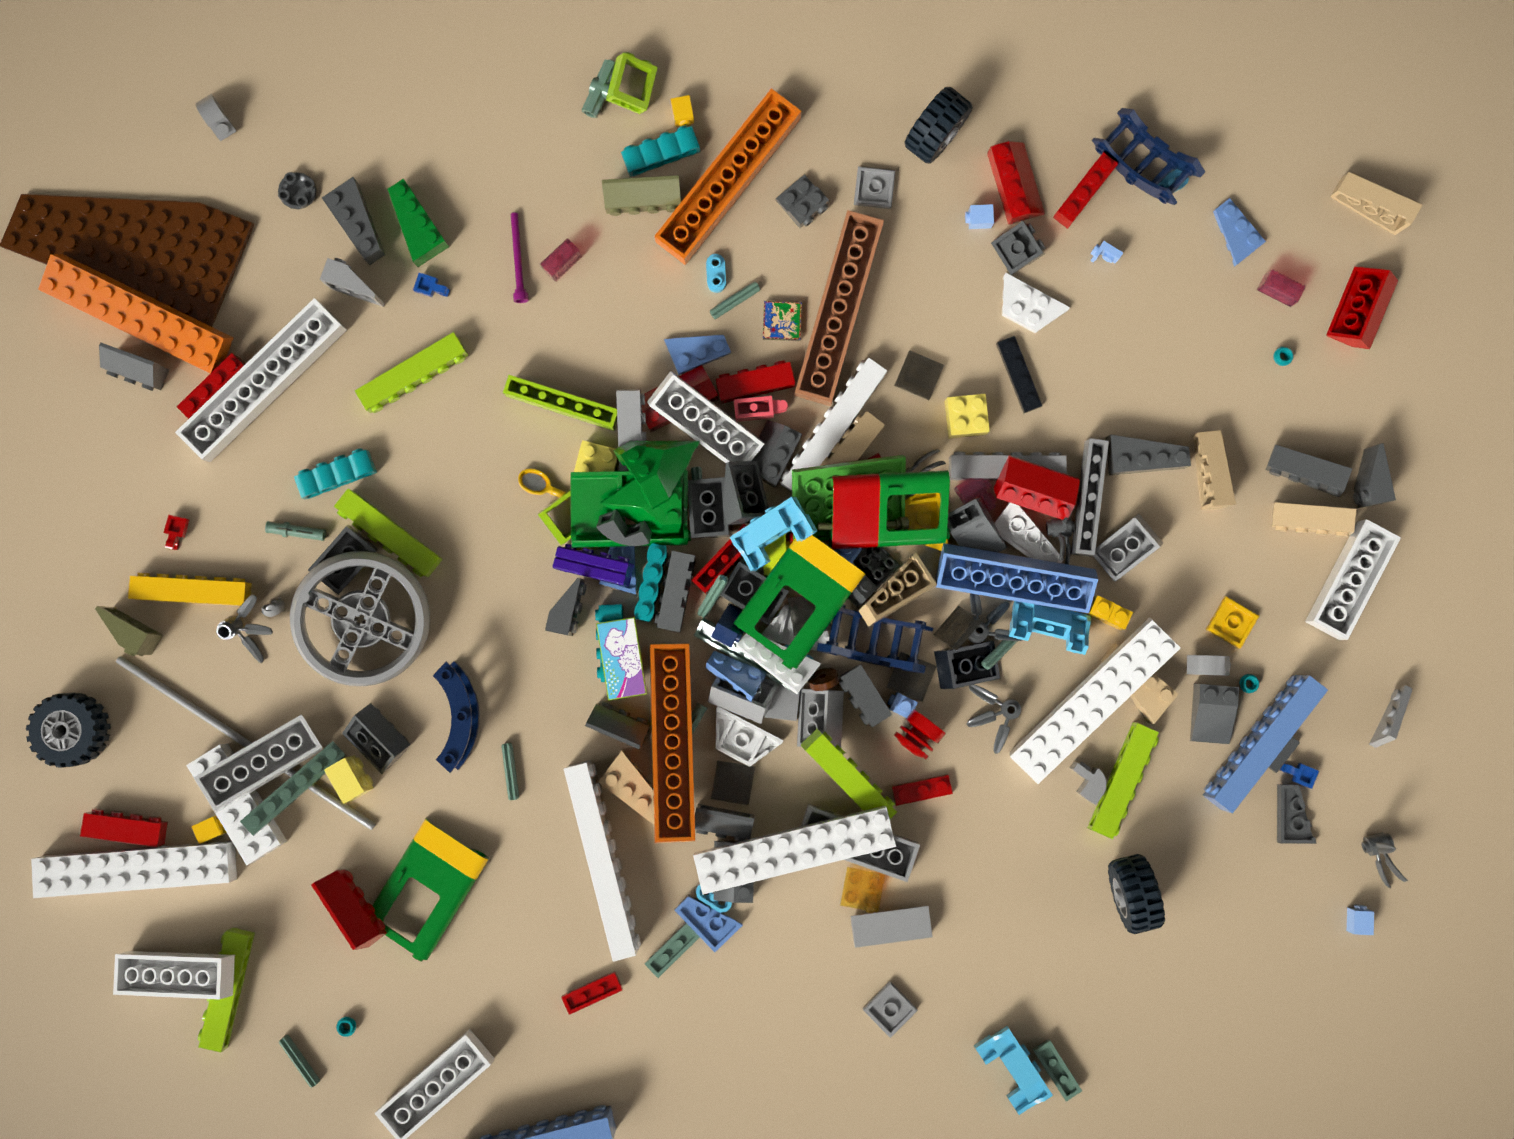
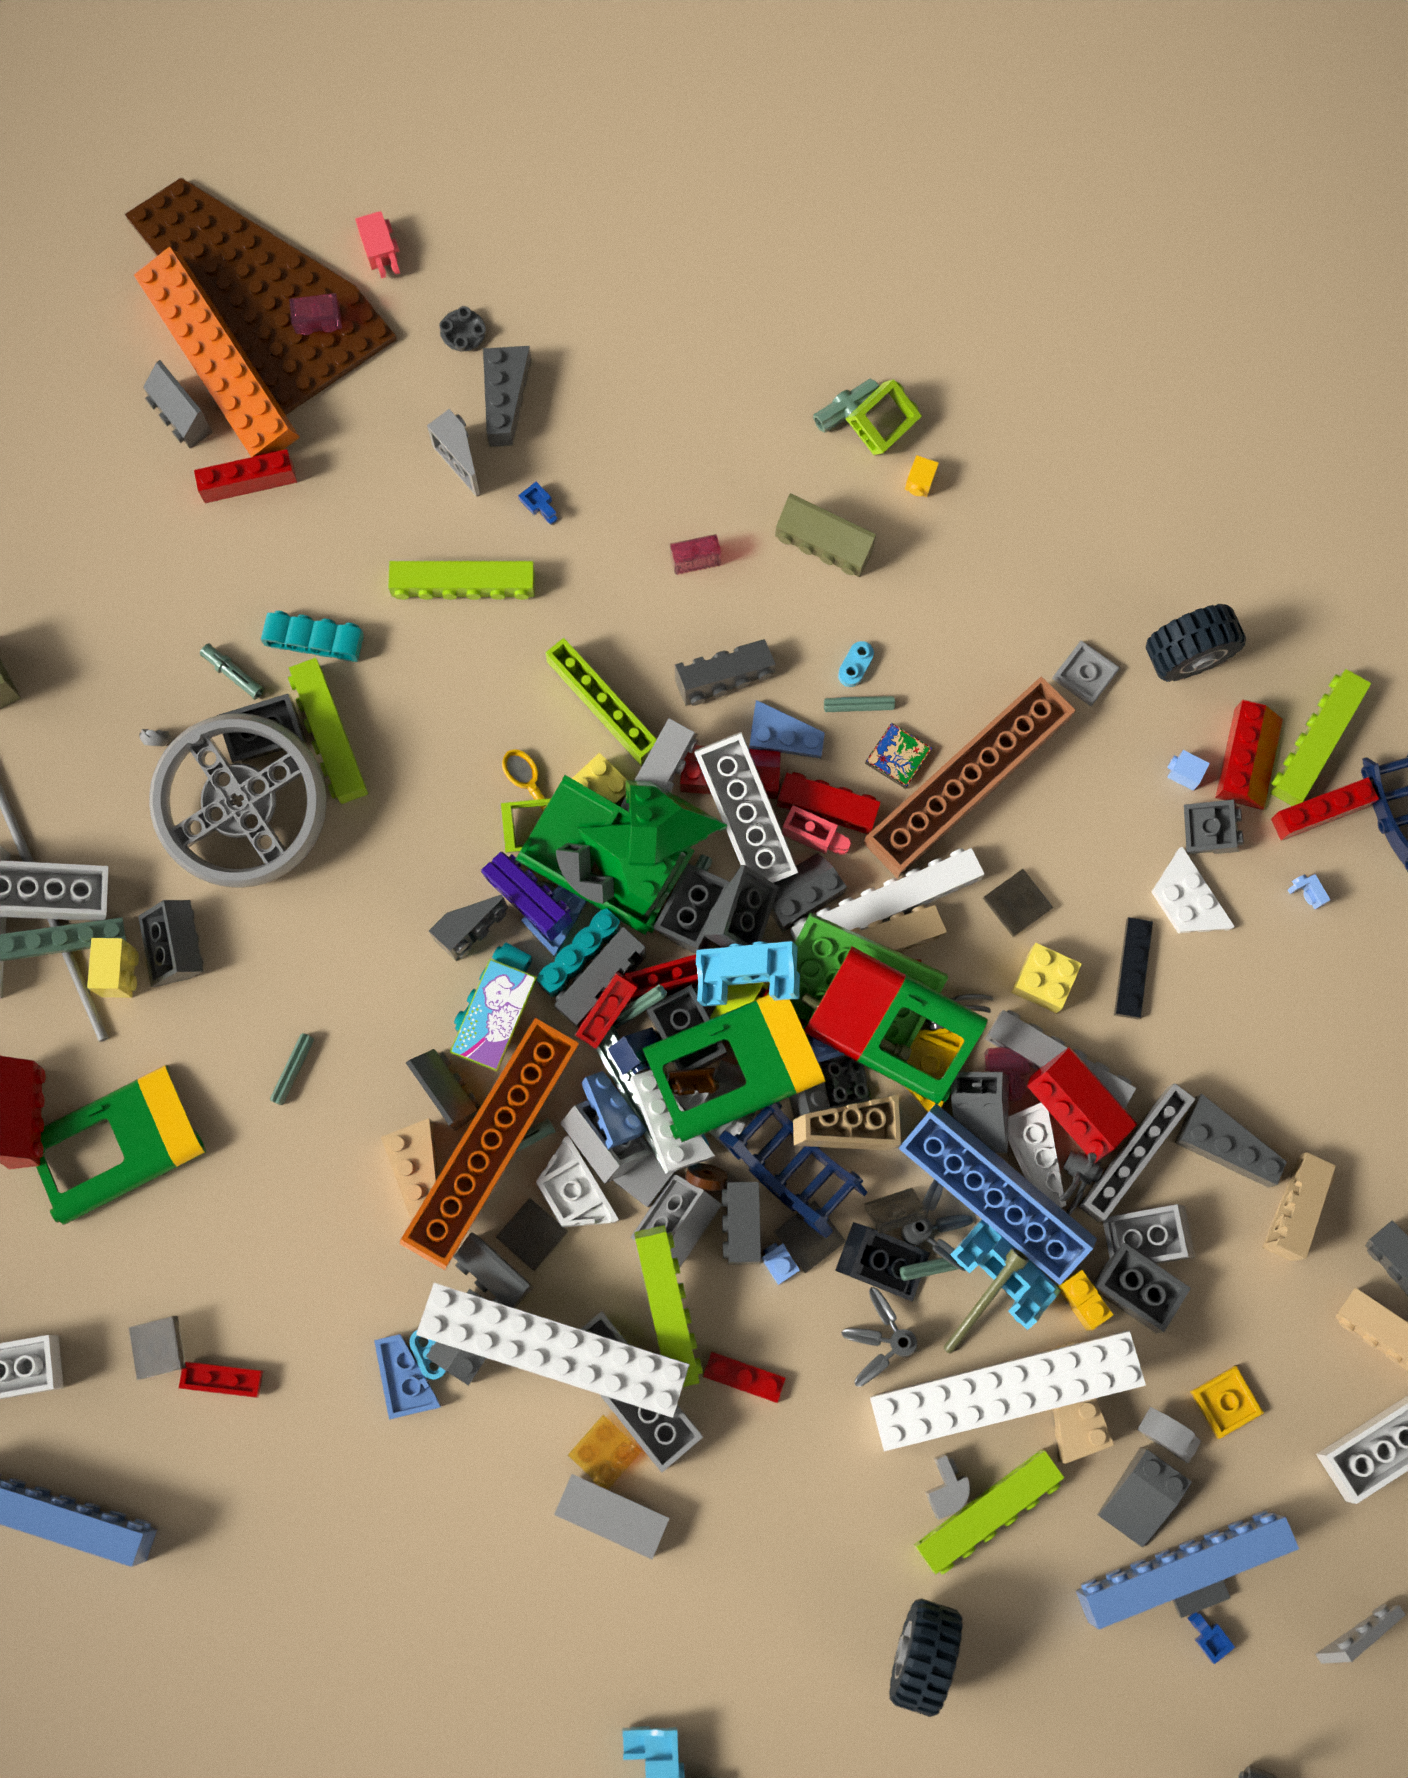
camera: 30 degrees right, 10 degrees down
(175, 528) = (108, 595): red plate -> none
(186, 241) = (315, 313): none -> clear pink brick
(188, 590) = (80, 667): yellow brick -> none
(195, 161) = (377, 243): none -> coral hinge
(214, 117) = (426, 212): light grey brick -> none
(233, 626) = (100, 731): dark grey plant -> none
(261, 381) = (298, 496): white brick -> none
(418, 229) = (563, 436): green wedge -> none
(464, 715) = (280, 974): dark blue fence -> none
(520, 294) = (629, 566): magenta piece -> none
(539, 998) = (157, 1347): none -> clear smoke tile
(602, 861) = (329, 1230): white brick -> none
(631, 332) = (724, 672): none -> dark grey wedge
(660, 151) = (873, 504): teal brick -> none
(671, 950) = (342, 1386): sand green plate -> none
(693, 611) = (606, 1010): none -> red plate
(728, 176) = (929, 569): orange brick -> none
(774, 628) = (688, 1081): none -> reddish brown hinge
(803, 201) = (997, 643): dark grey plate -> none
(890, 1009) = (550, 1619): light grey tile -> none
(919, 734) = (779, 1307): red wheel -> none
(1053, 616) = (1015, 1261): none -> olive piece
(1055, 141) = (1320, 738): none -> lime brick
(1140, 584) = (1141, 1288): none -> dark grey slope
(1254, 683) = (1215, 1489): teal plate -> none
(1291, 817) = (1170, 1685): dark grey wing -> none

